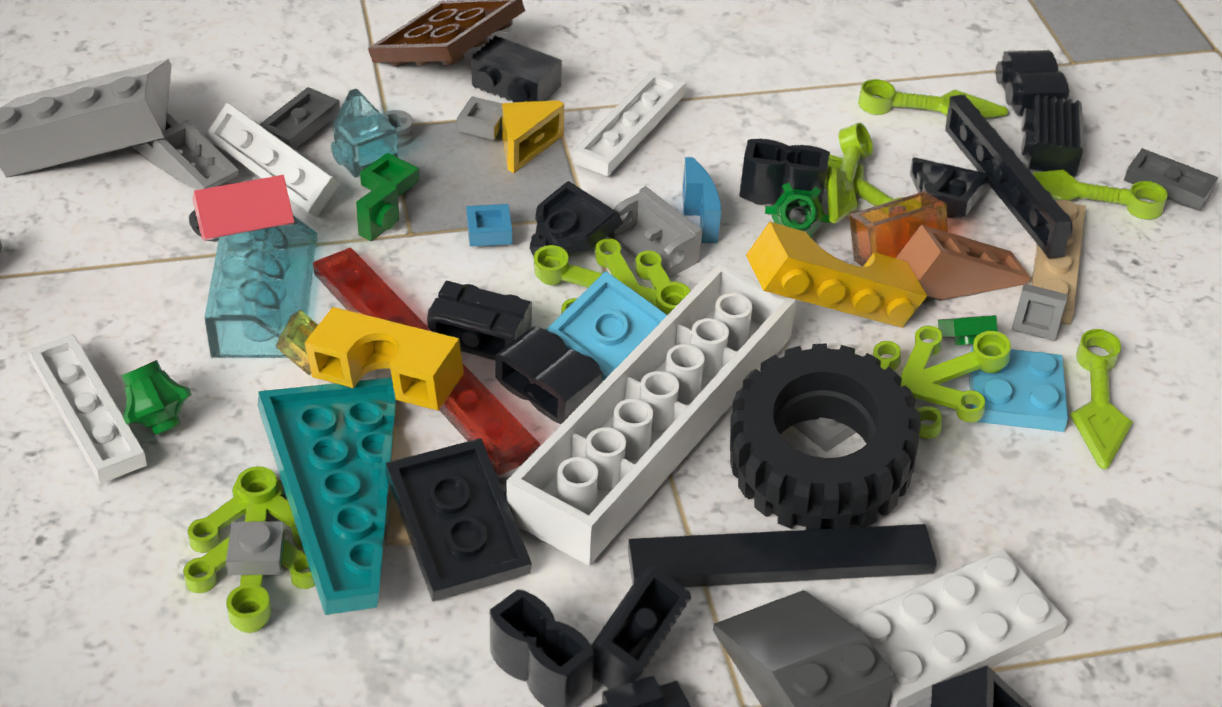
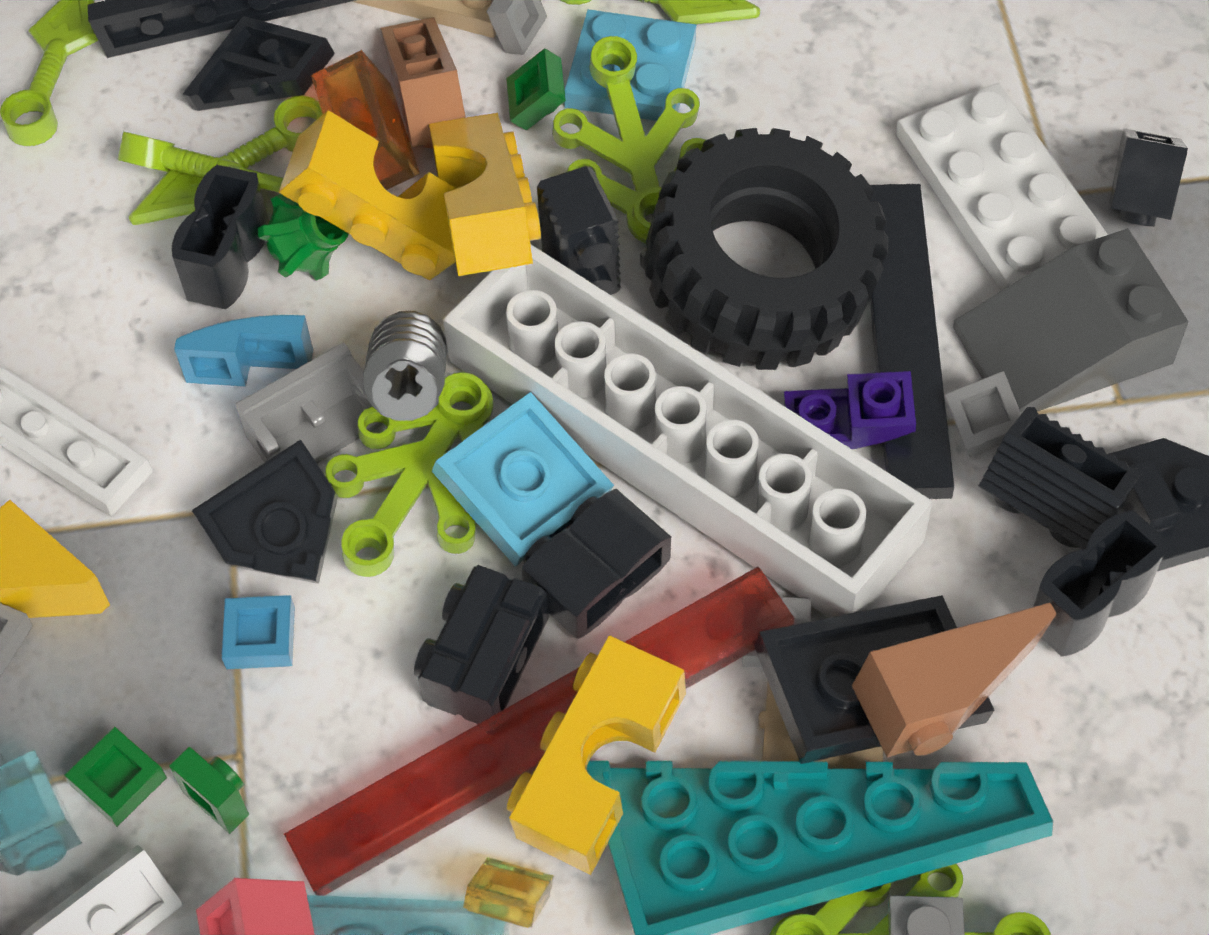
camera: 80 degrees left, 15 degrees up
(441, 540) = (933, 684): none -> nougat slope
(679, 250) = (405, 366): none -> dark grey piece
(693, 510) = (864, 413): none -> dark purple slope
(710, 599) = (983, 412): none -> light grey plate
(818, 319) = (580, 227): none -> black brick
(821, 190) = (336, 179): none -> yellow arch

